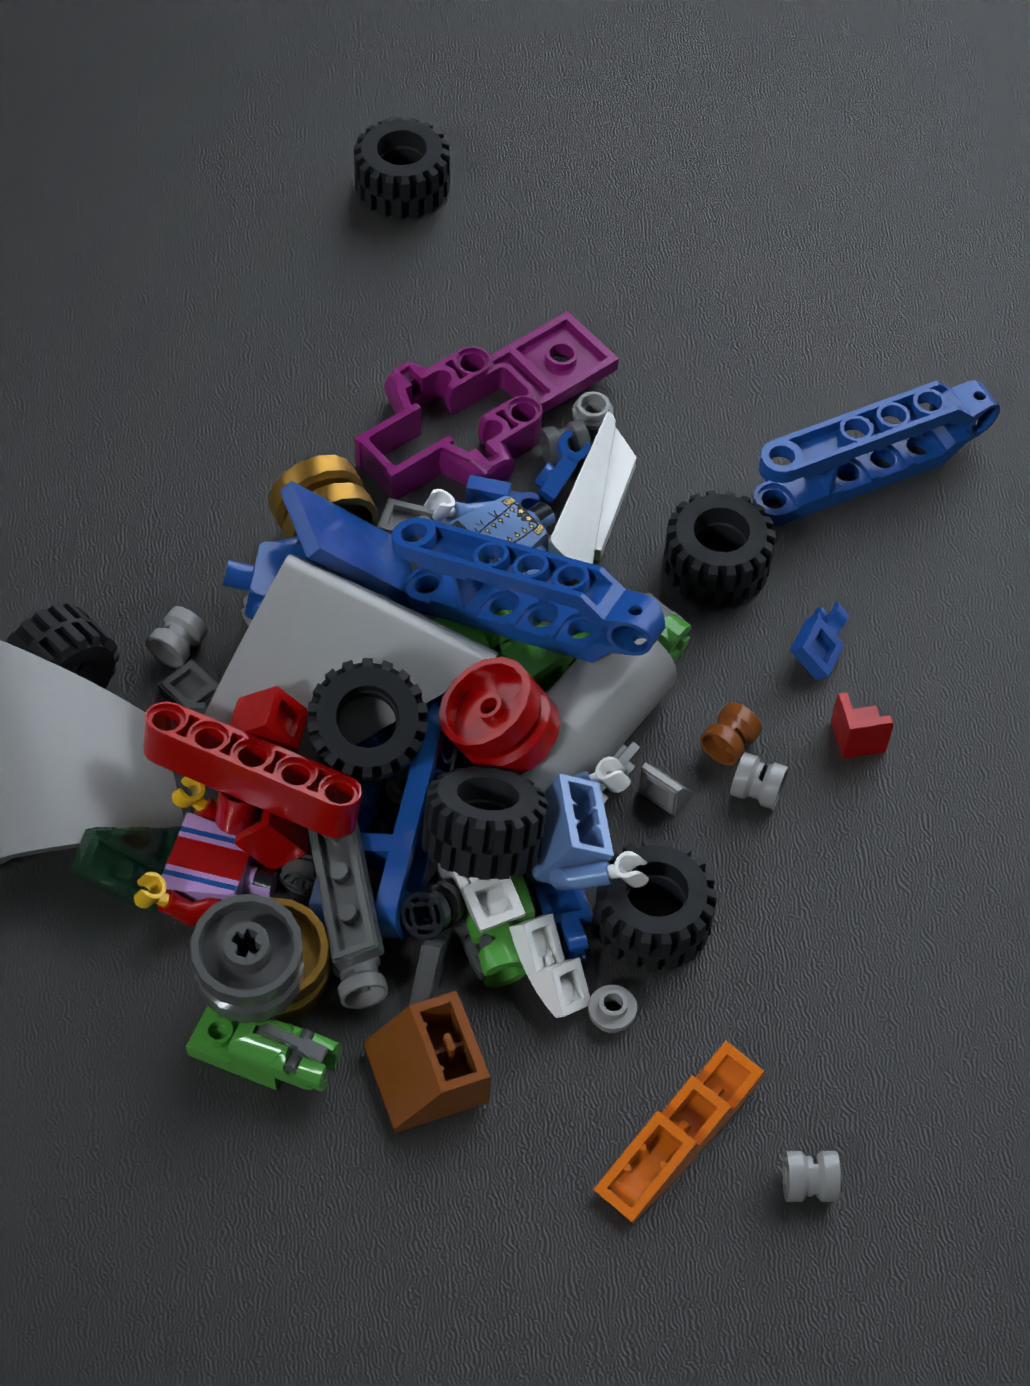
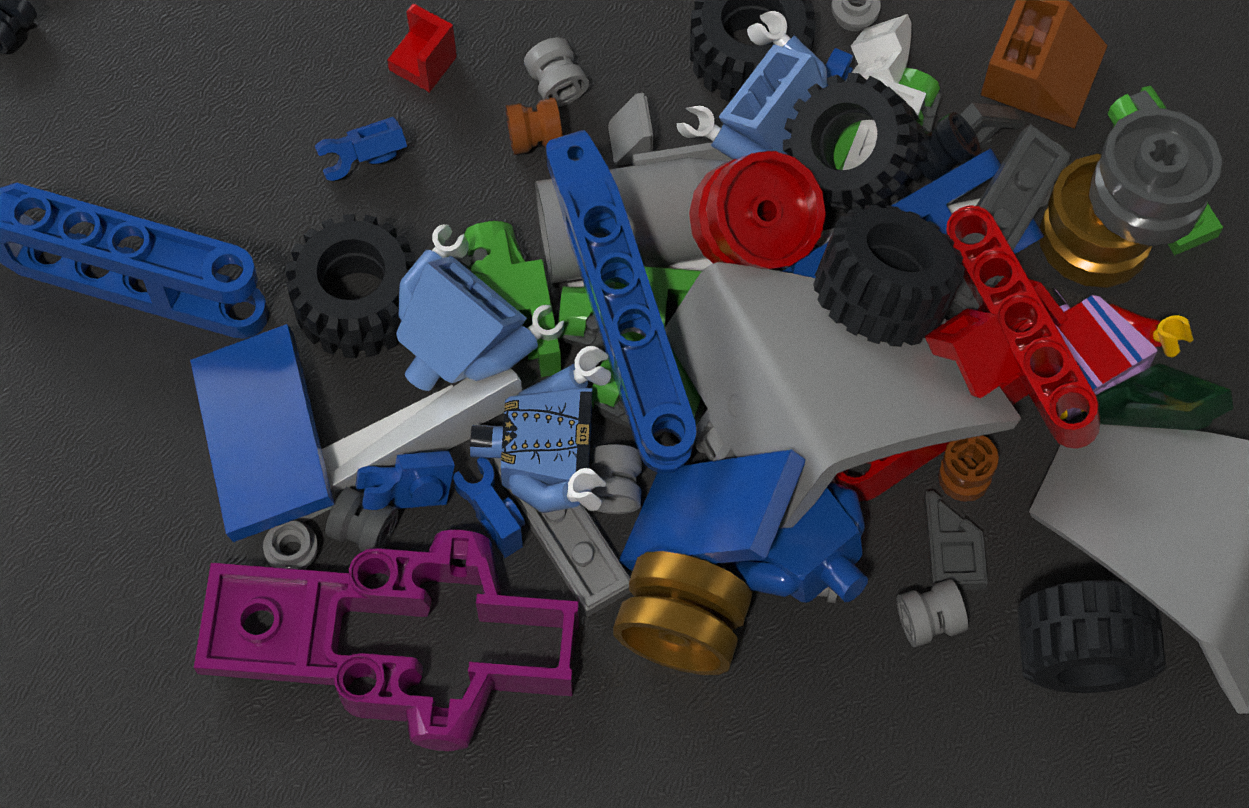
camera: 135 degrees left, 10 degrees up
(631, 543) = (458, 321): none -> medium blue torso
(672, 436) = (261, 433): none -> blue tile

